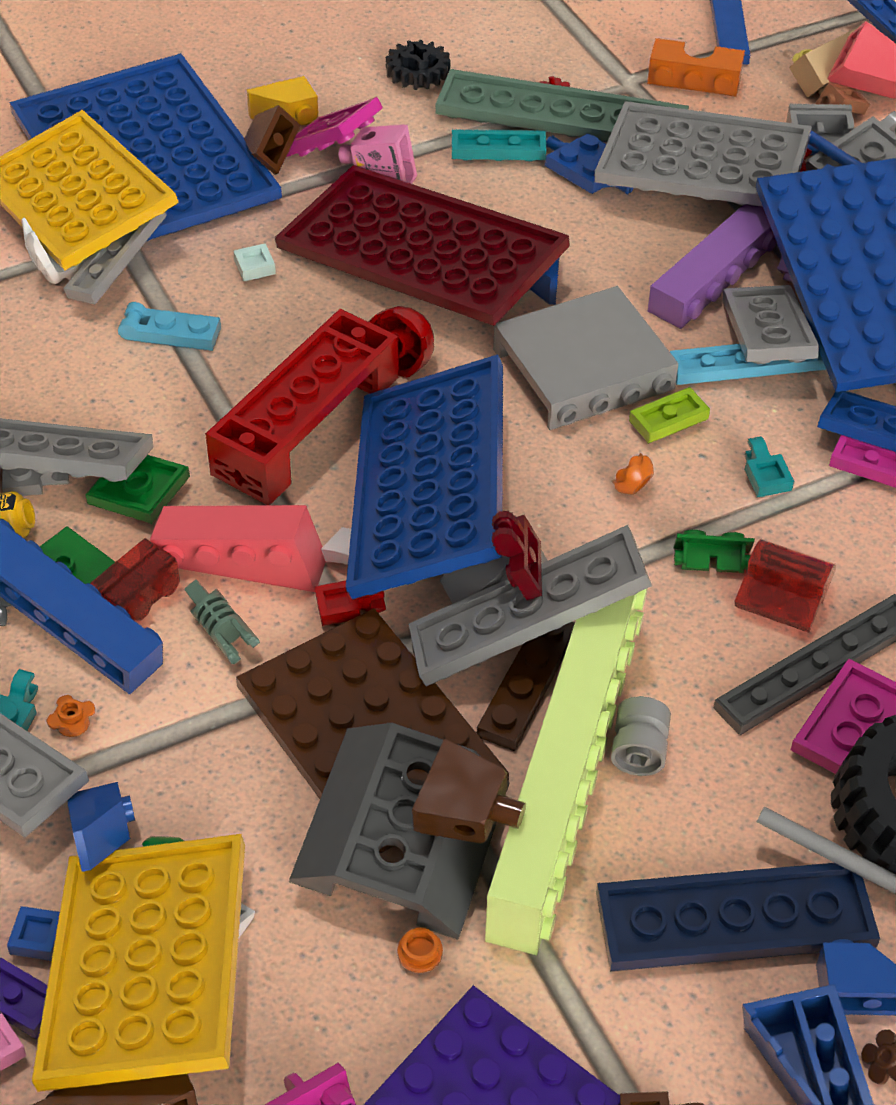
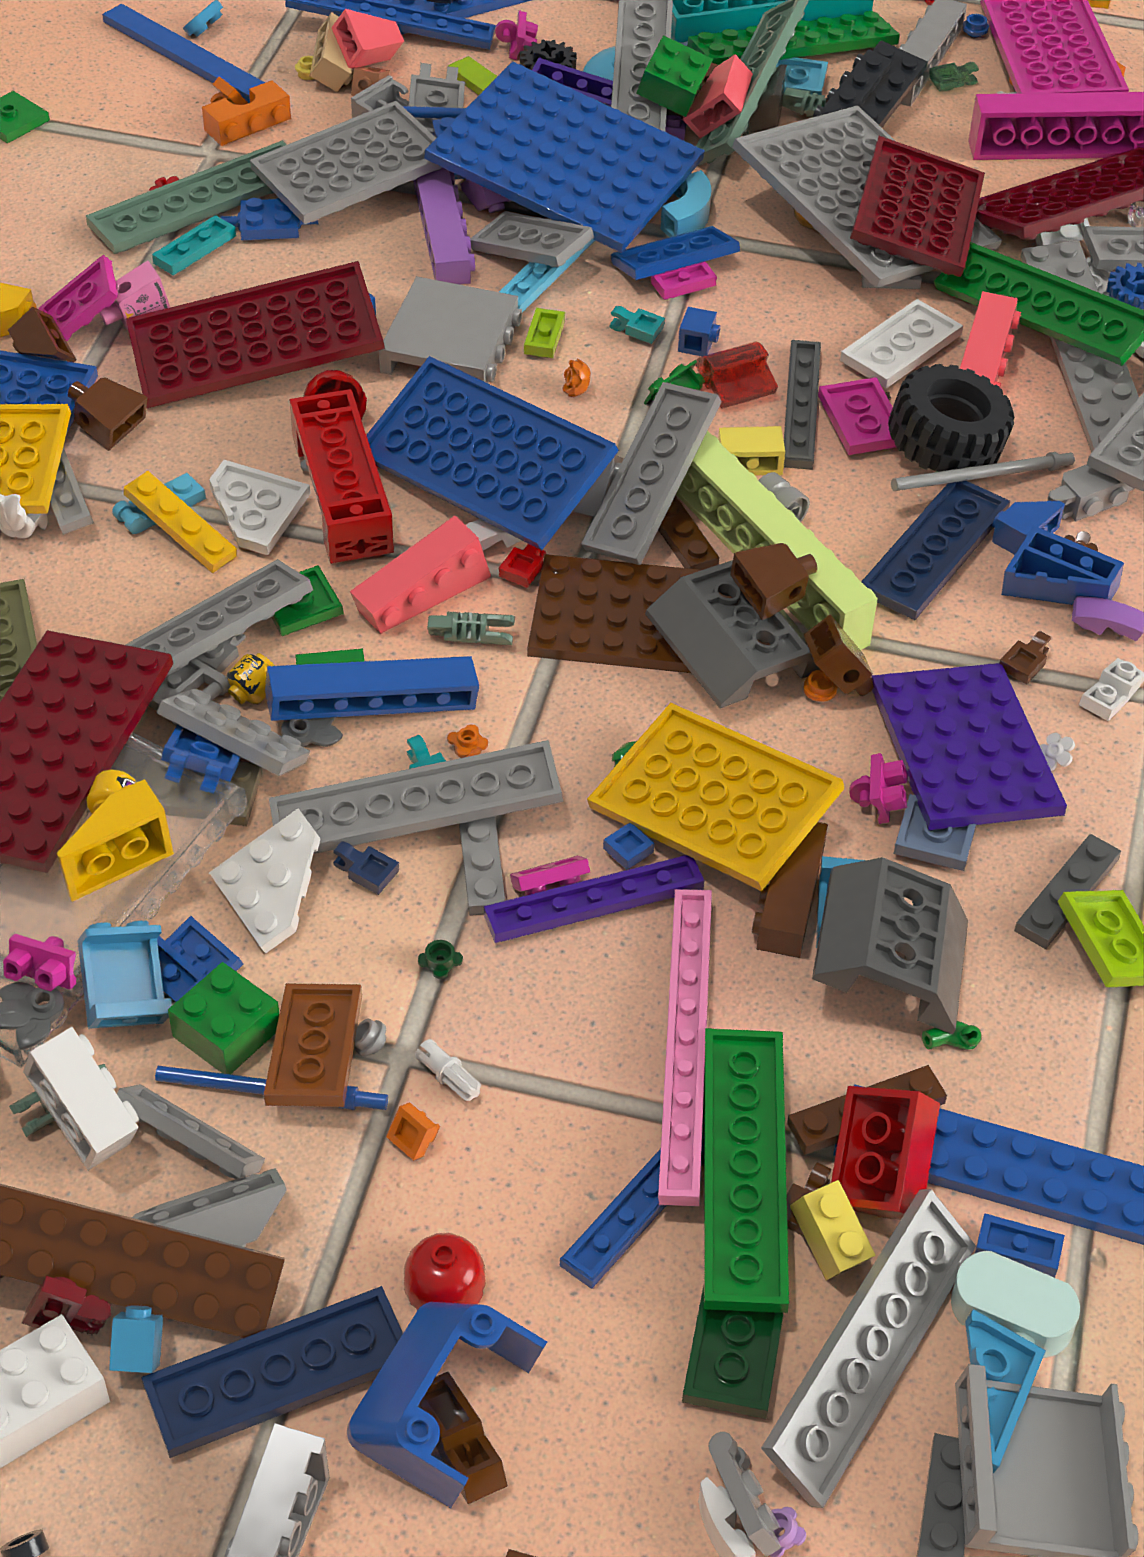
camera: 50 degrees left, 0 degrees up
(99, 822) = (582, 768): blue slope -> none
(139, 579) = (392, 637): clear red brick -> none
(150, 352) = (180, 521): none -> yellow plate
(220, 379) = (256, 503): none -> white plate
(232, 224) = (107, 410): none -> reddish brown torso
(254, 262) = (152, 425): light aqua plate -> none
(418, 64) = (55, 227): black gear -> none
(446, 935) = (839, 657): none -> reddish brown torso
(520, 543) = (632, 446): dark red hinge -> none
(691, 666) = (756, 448): none -> light yellow brick
(702, 42) = (228, 92): none -> orange tile
(808, 516) = (698, 331): none -> blue brick

